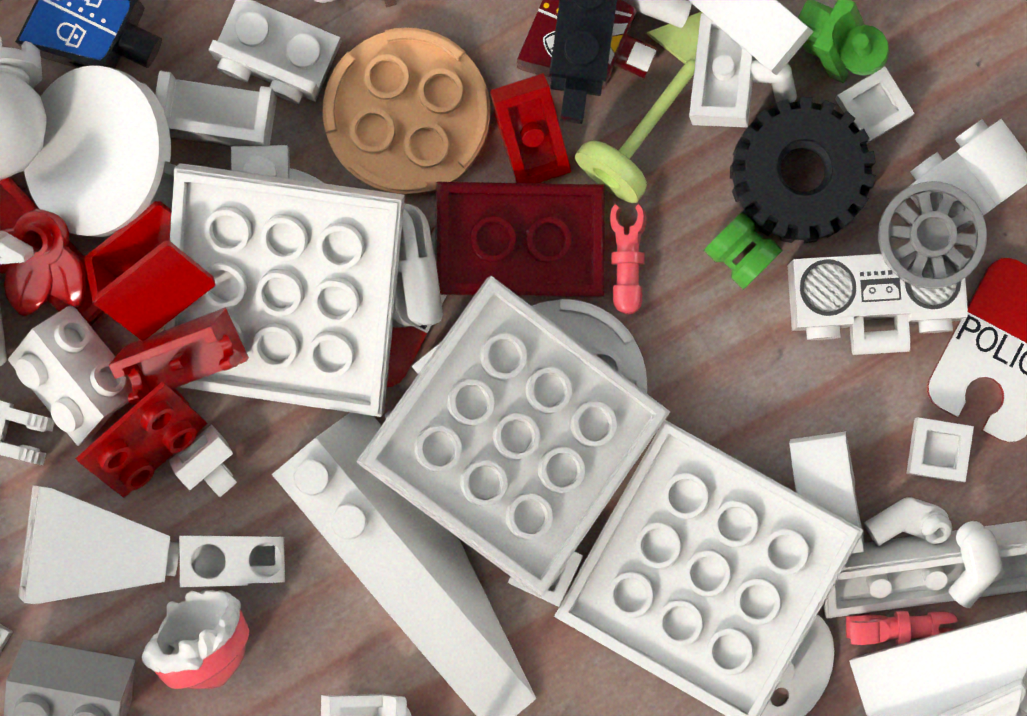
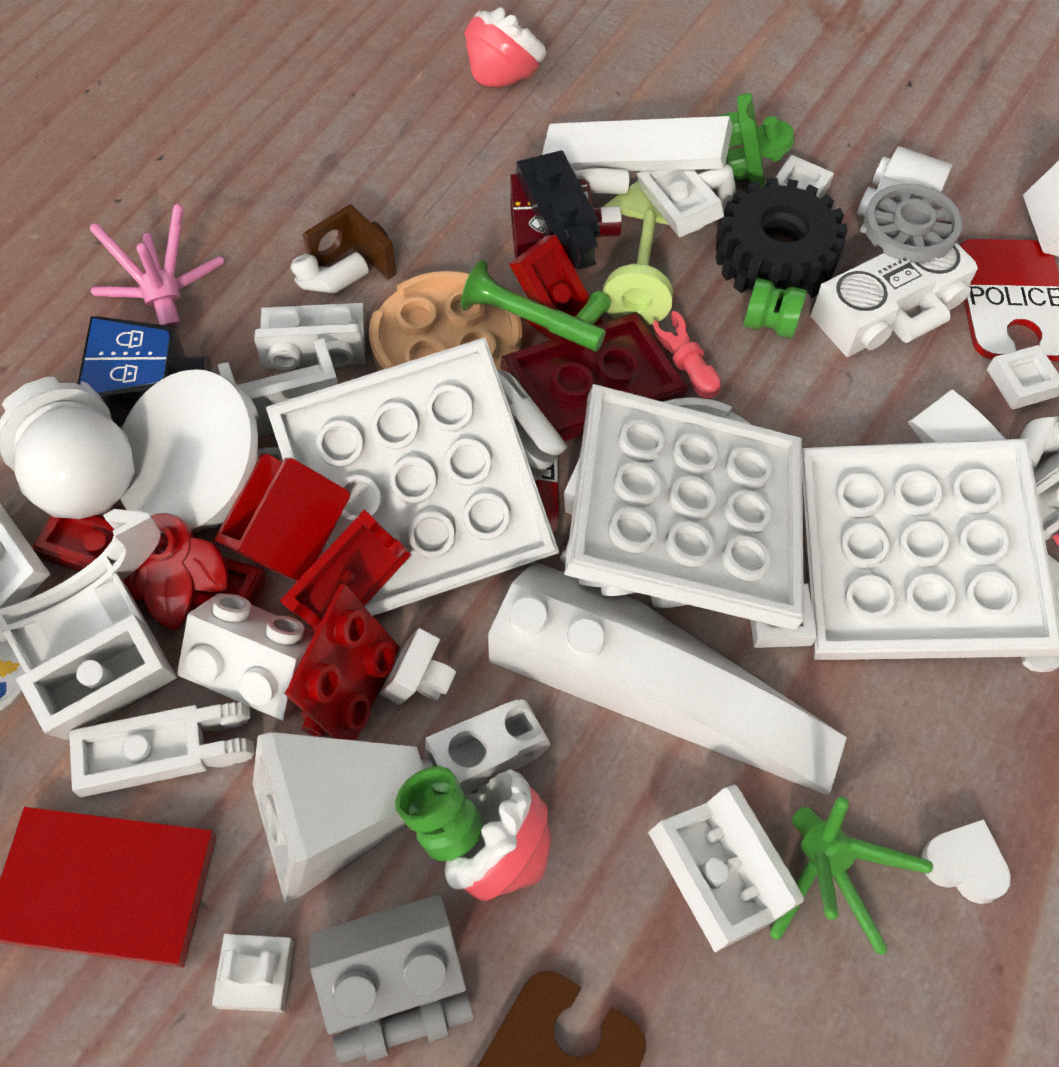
camera: 25 degrees left, 25 degrees down
(157, 607) = (443, 823): none -> bright green wheel
(522, 188) = (580, 329): none -> bright green piece

